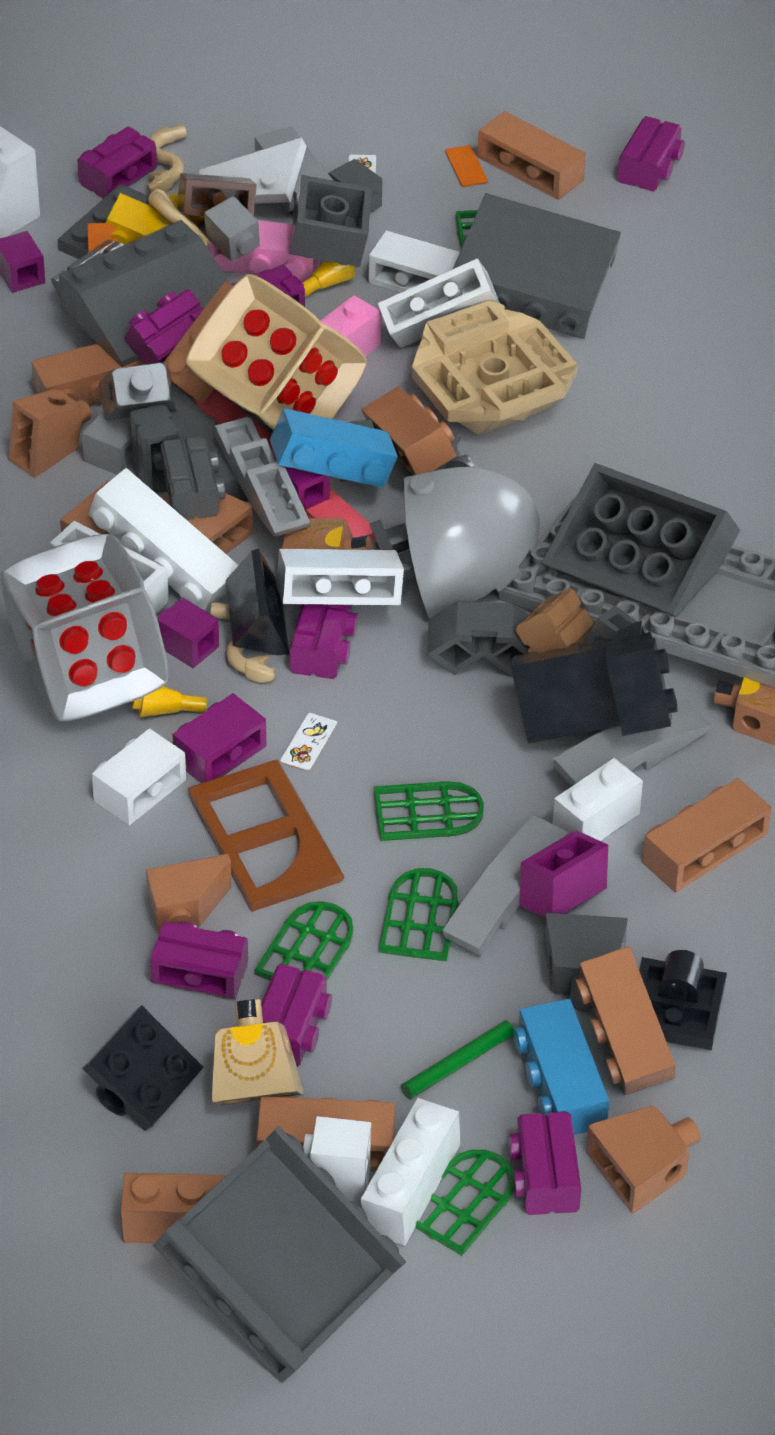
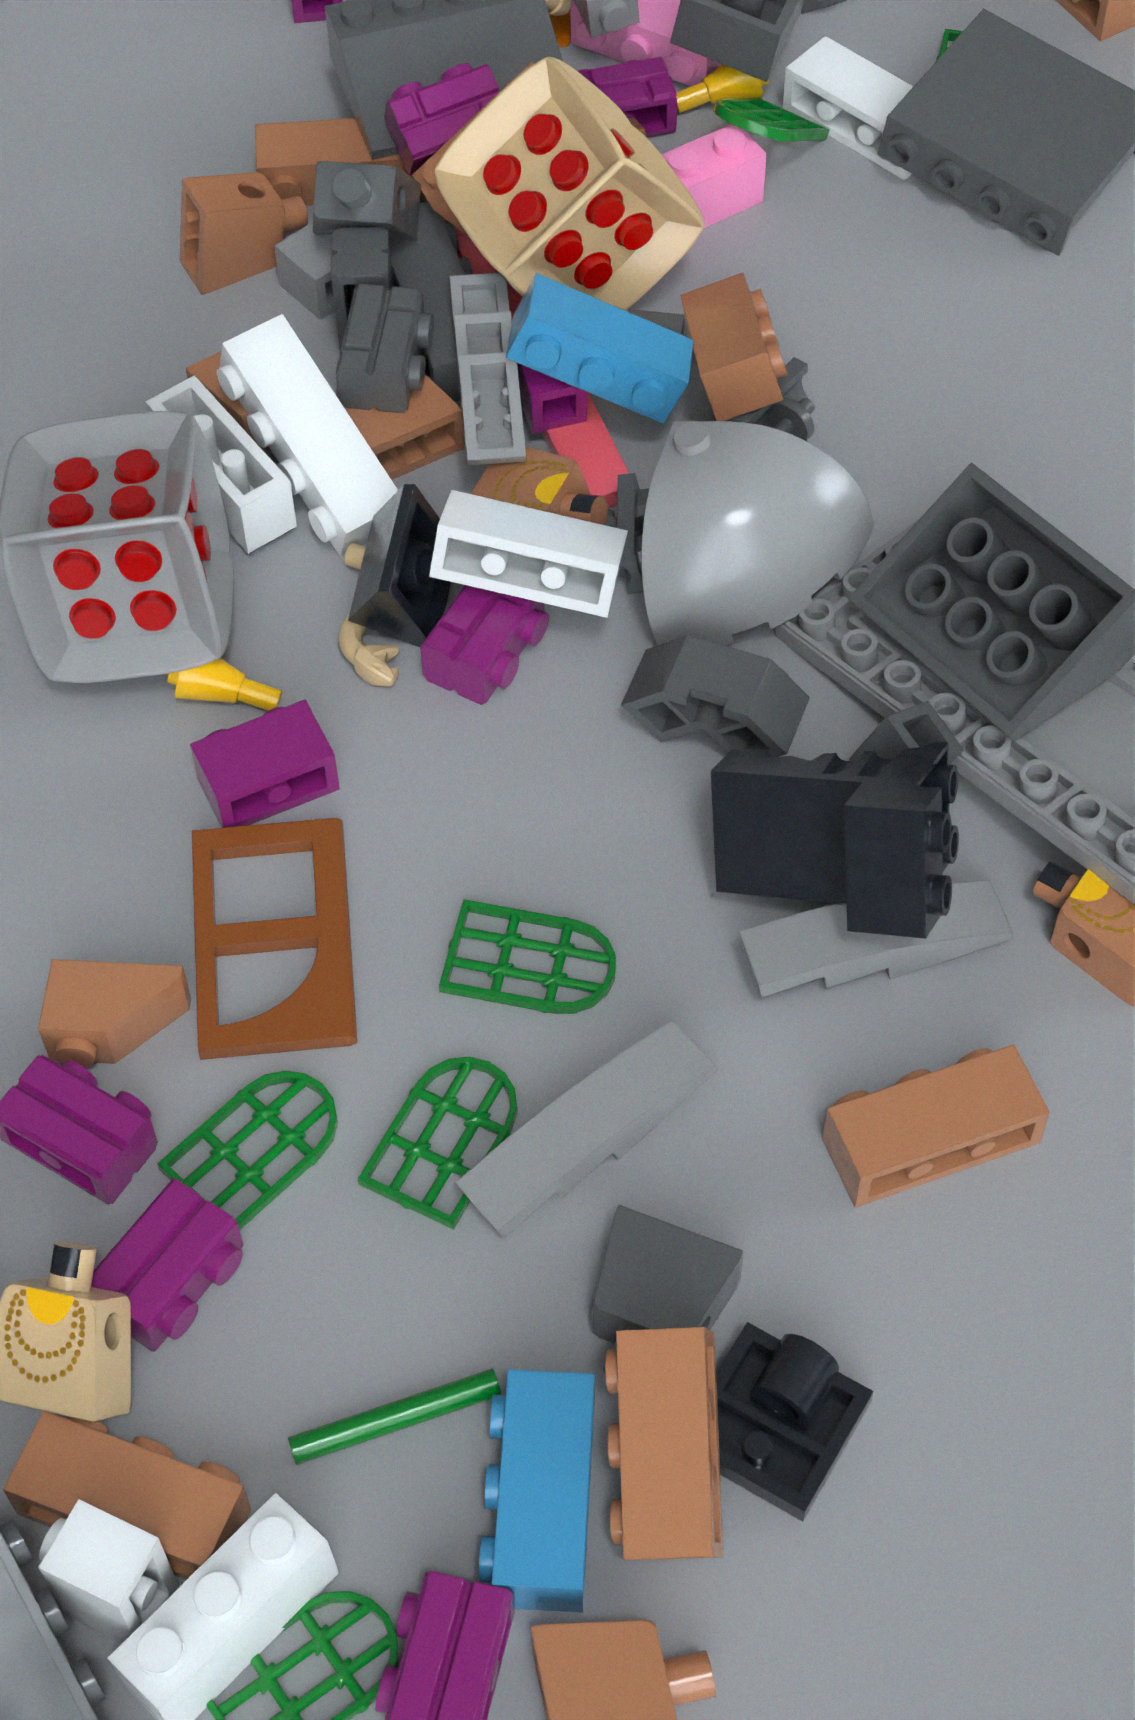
camera: 20 degrees right, 10 degrees up
(139, 776) = (124, 796): white brick -> none
(188, 632) = (295, 582): magenta brick -> none
(308, 741) = (402, 798): white sticker -> none
(366, 290) = (768, 120): none -> green window
(445, 294) = (853, 158): white brick -> none
(491, 366) = (893, 271): tan piece -> none
(555, 623) = (825, 709): medium nougat brick -> none
(564, 874) = (674, 1142): magenta brick -> none
(600, 801) = (779, 1028): white brick -> none

